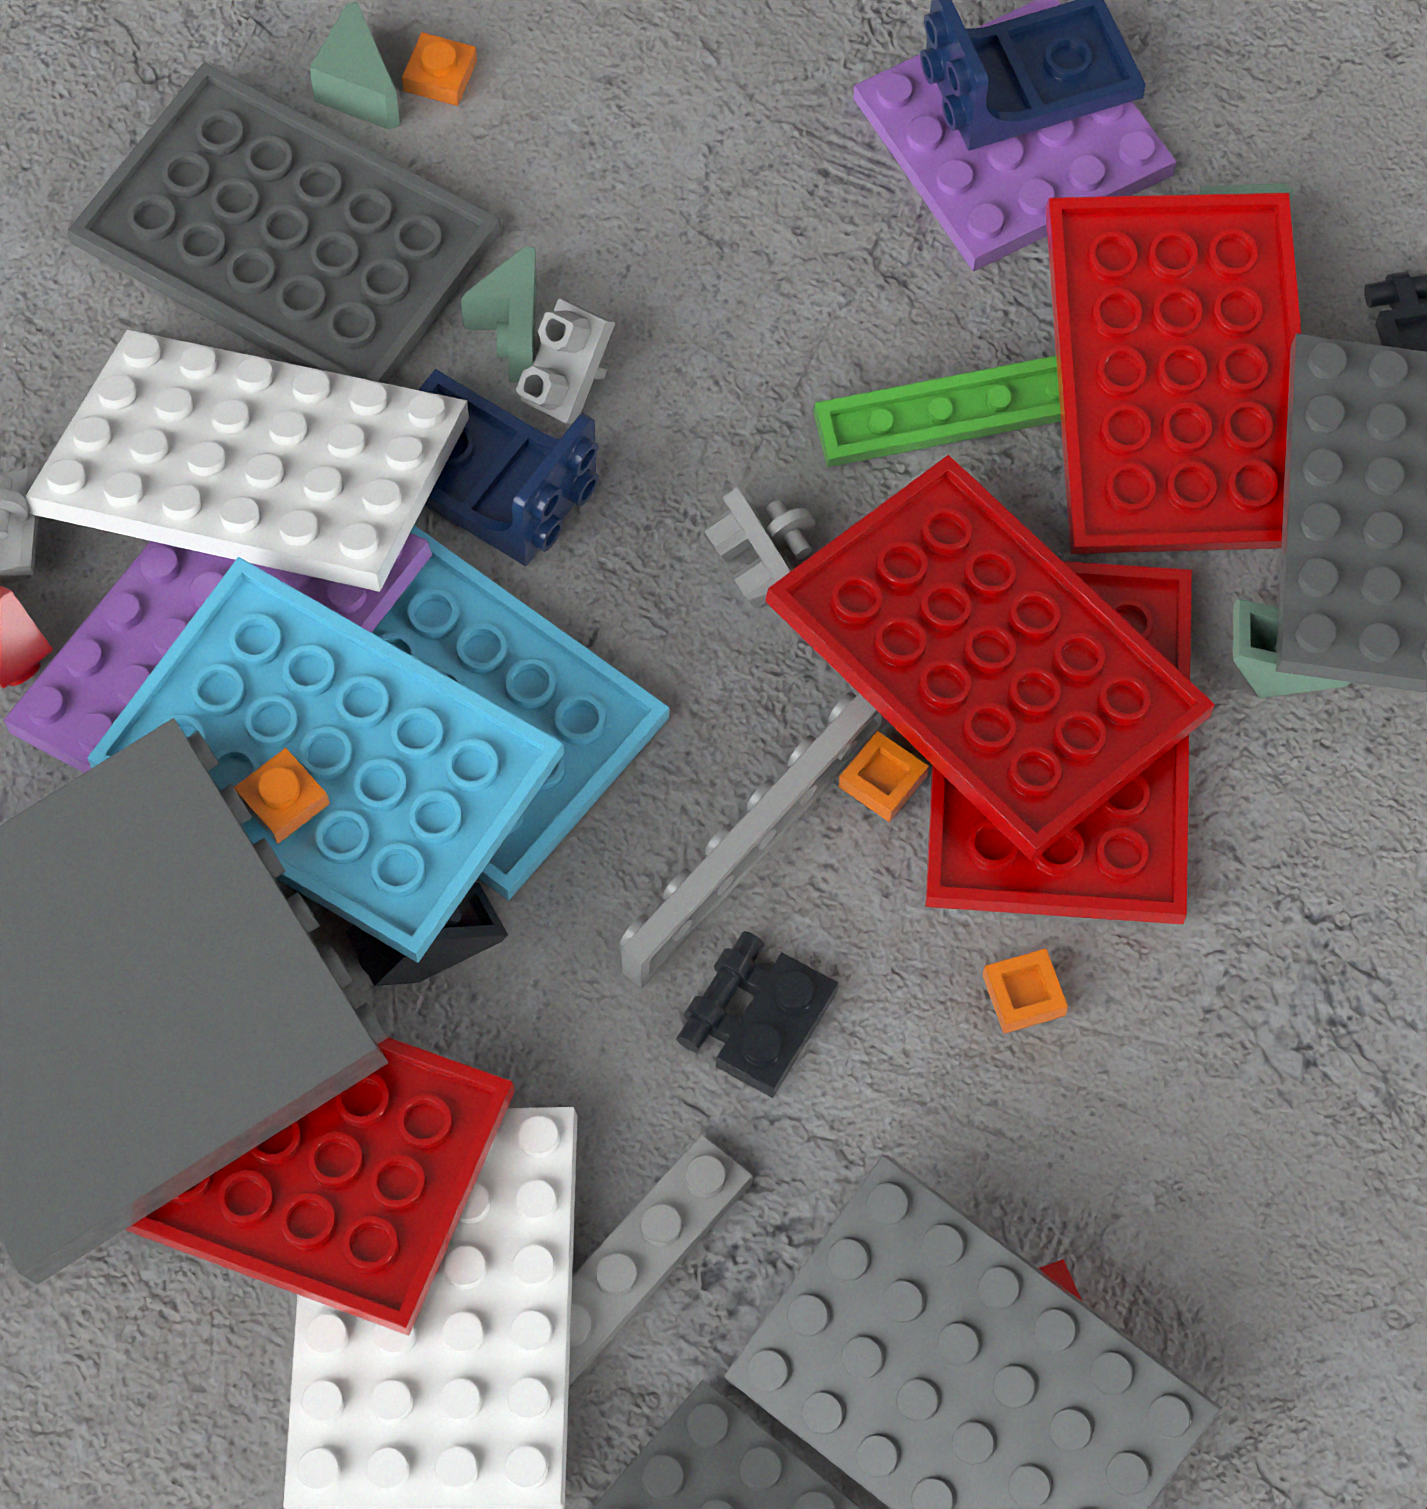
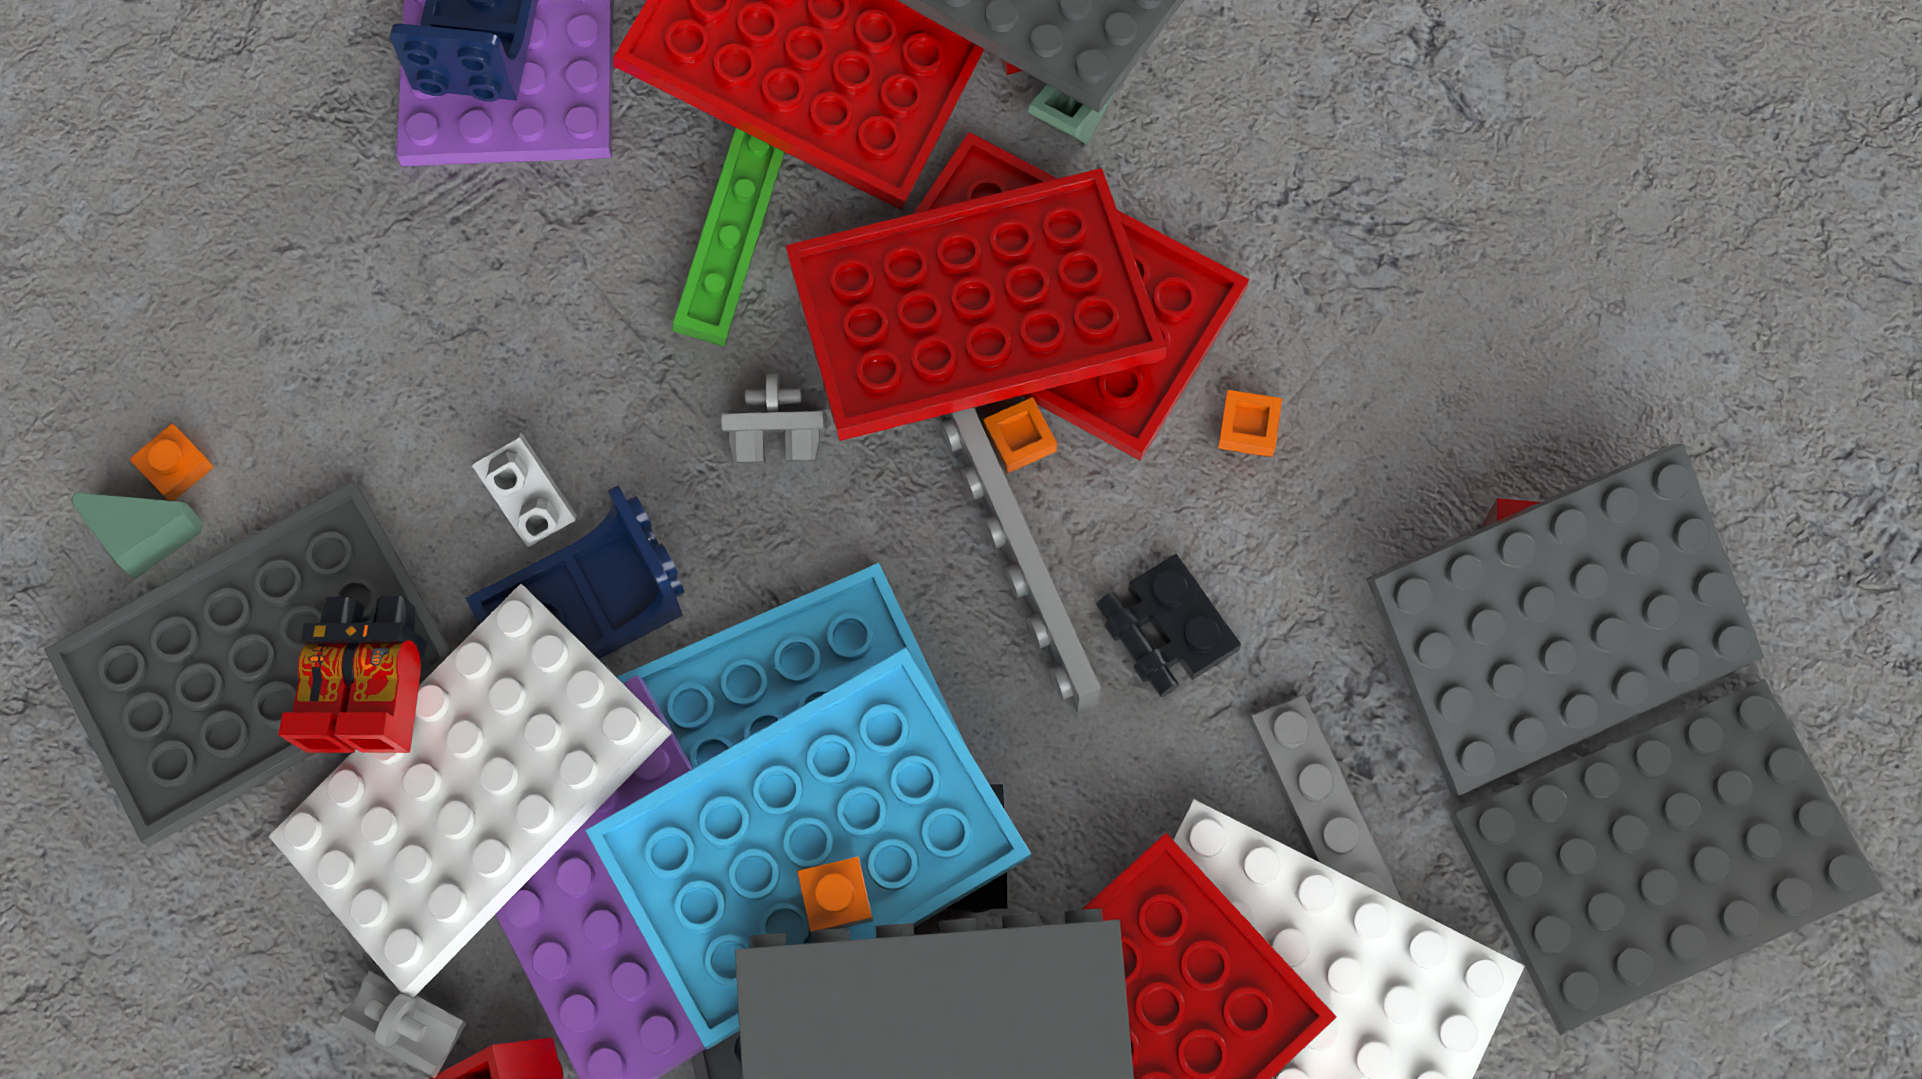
camera: 60 degrees left, 5 degrees up
(299, 312) = (357, 680): none -> hips
(507, 304) = (439, 507): sand green slope -> none

